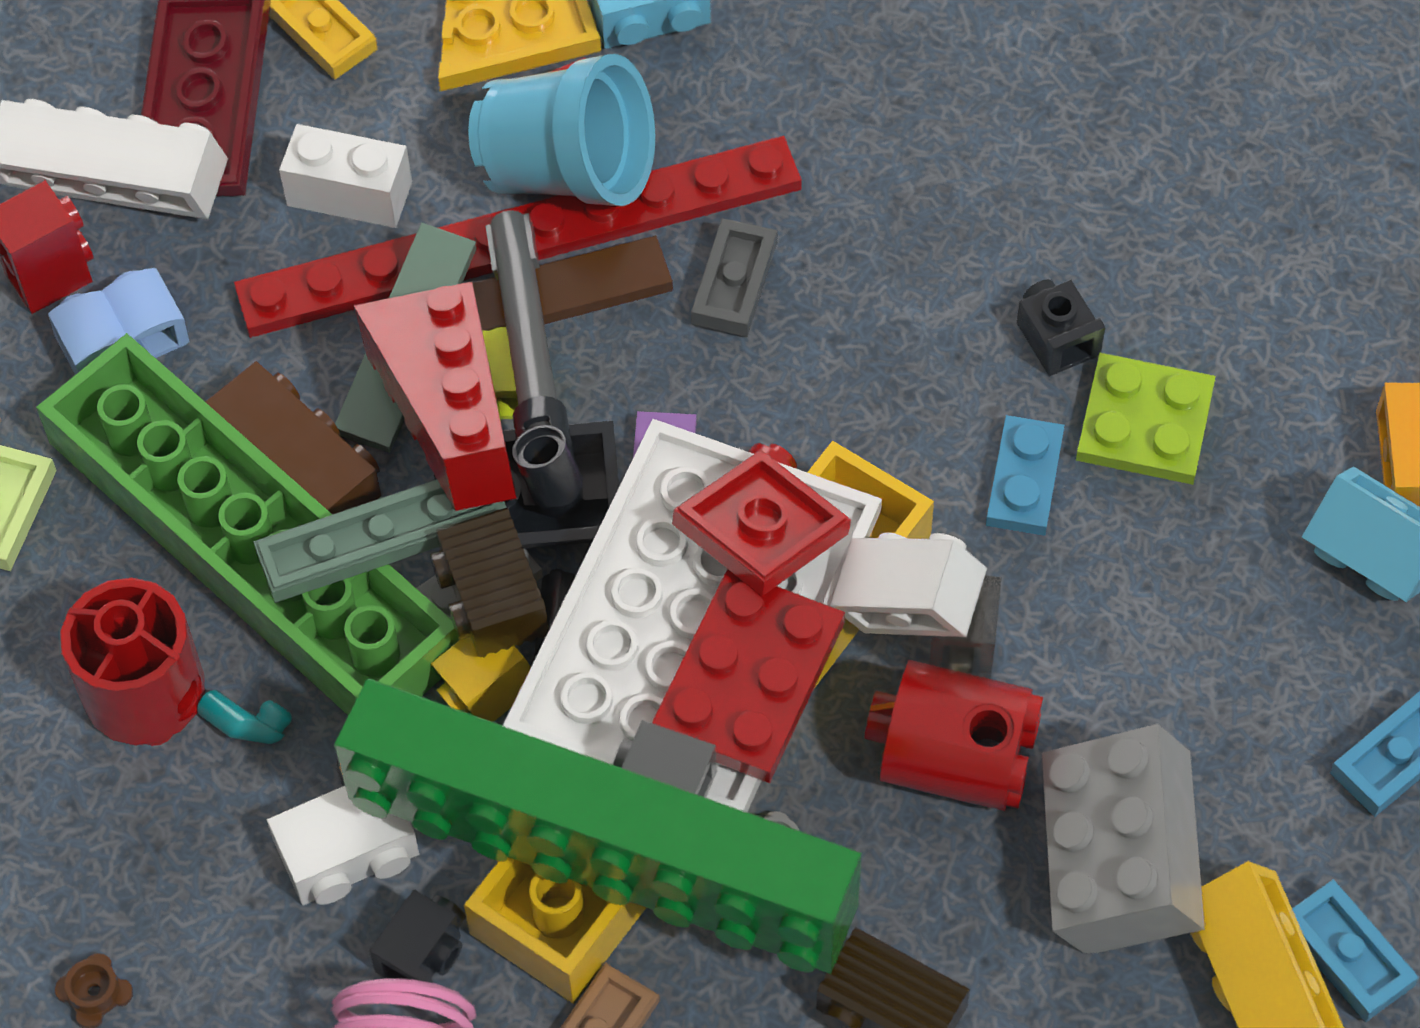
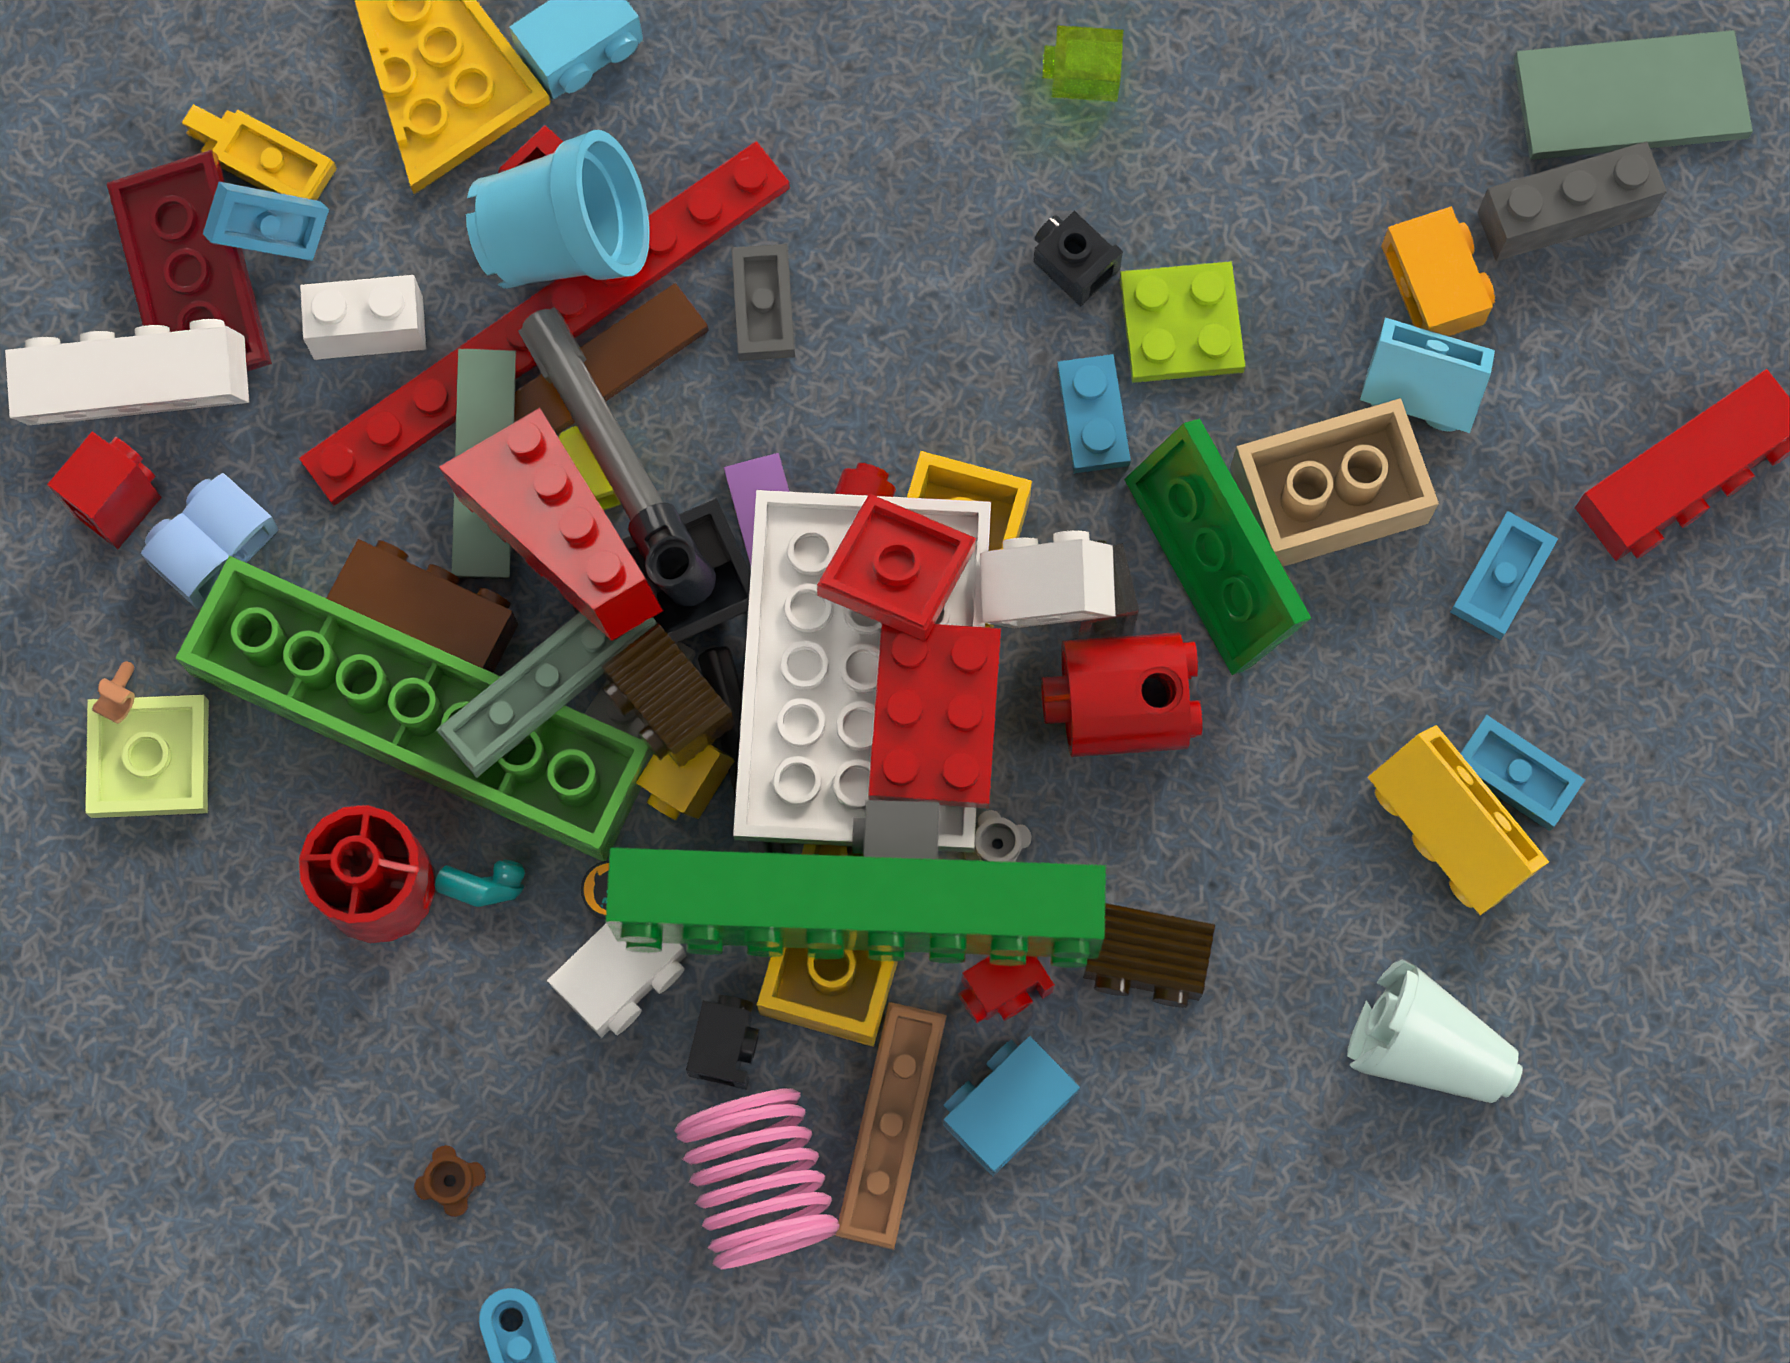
camera: 20 degrees left, 15 degrees up
(289, 64) = (265, 221): none -> dark azure plate
(729, 982) = (1002, 988): none -> red brick
(1102, 620) = (1216, 547): none -> green plate
(1122, 840) = (1300, 744): light grey brick -> none
(1131, 157) = (1084, 63): none -> clear neon green brick
(1246, 606) = (1336, 482): none -> tan brick

